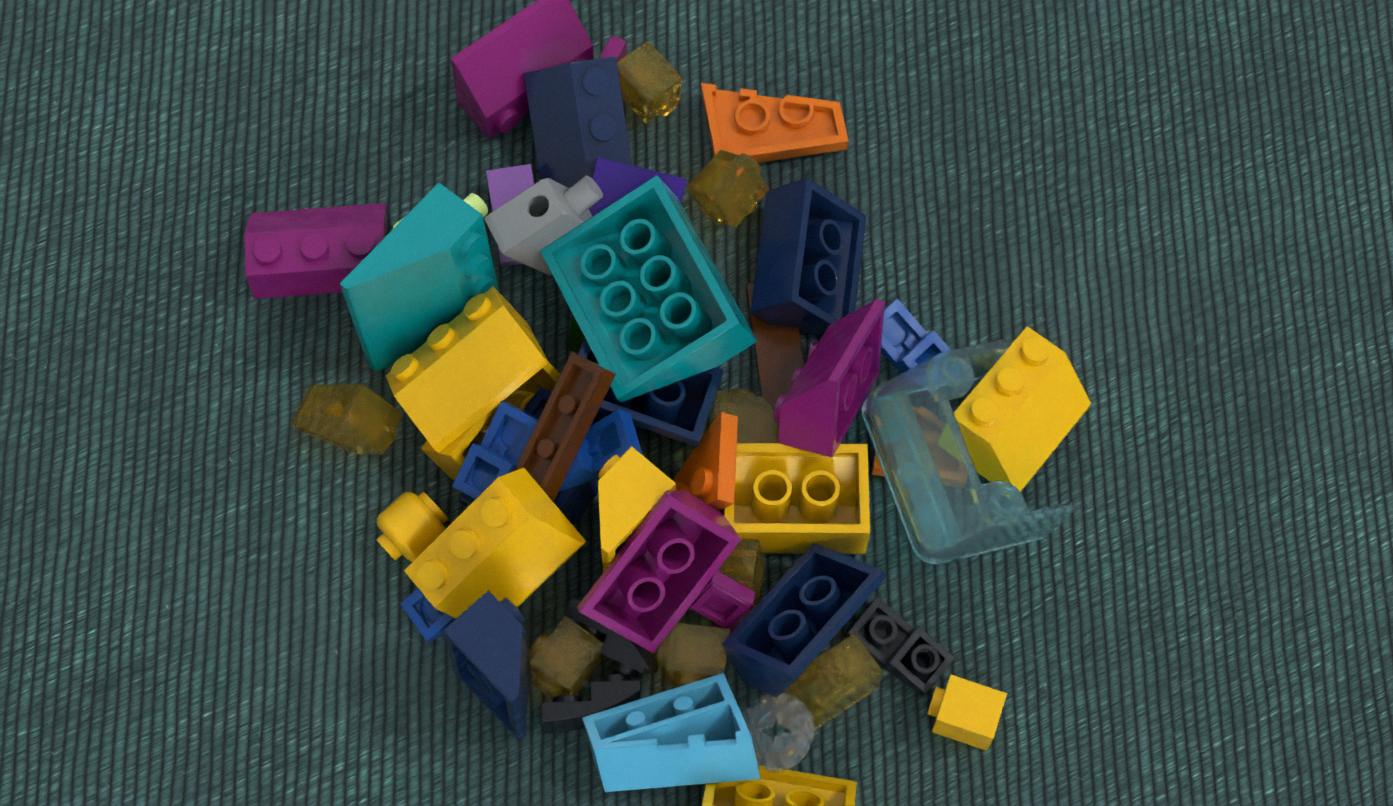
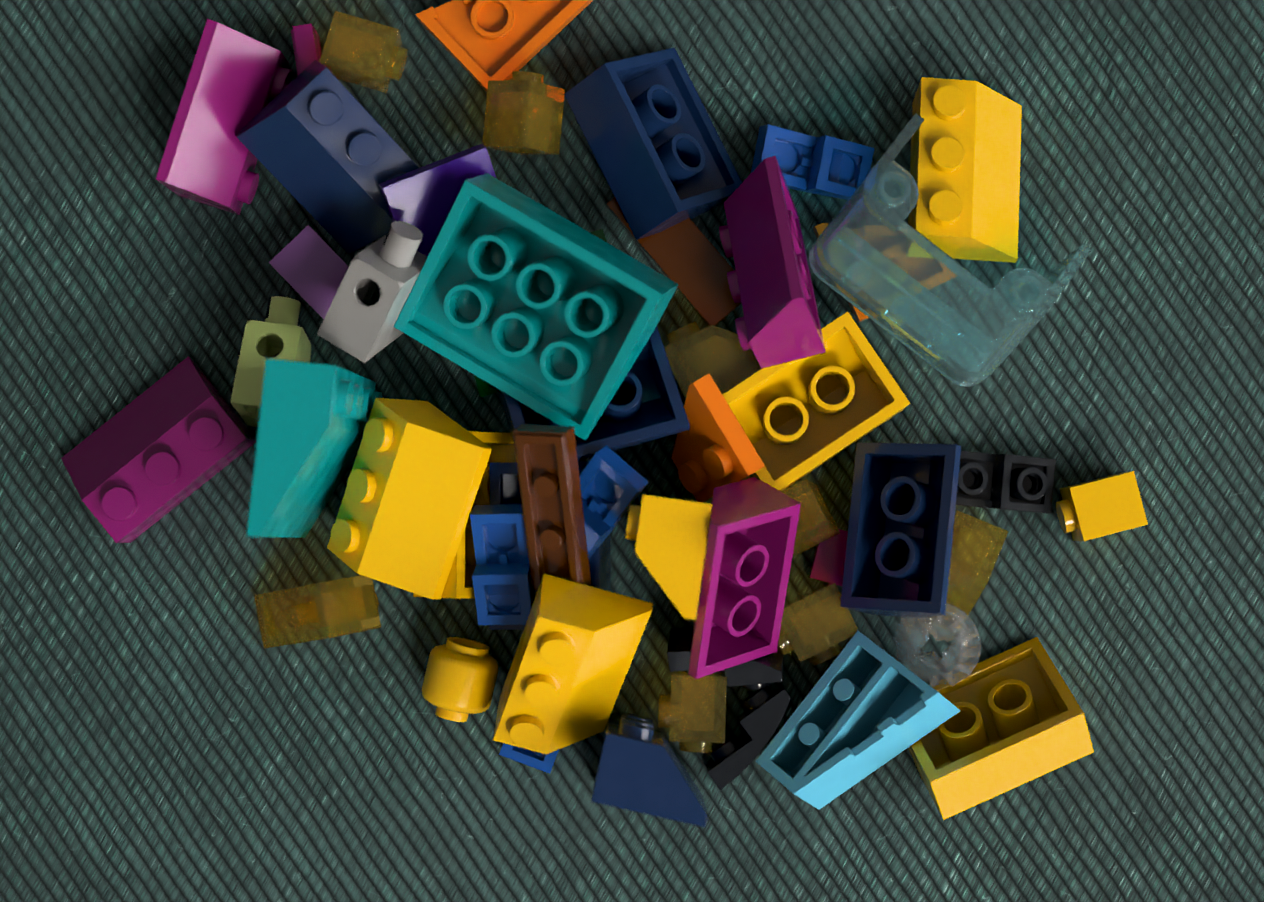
camera: 30 degrees left, 20 degrees up
(723, 600) = (814, 558): magenta tile -> none

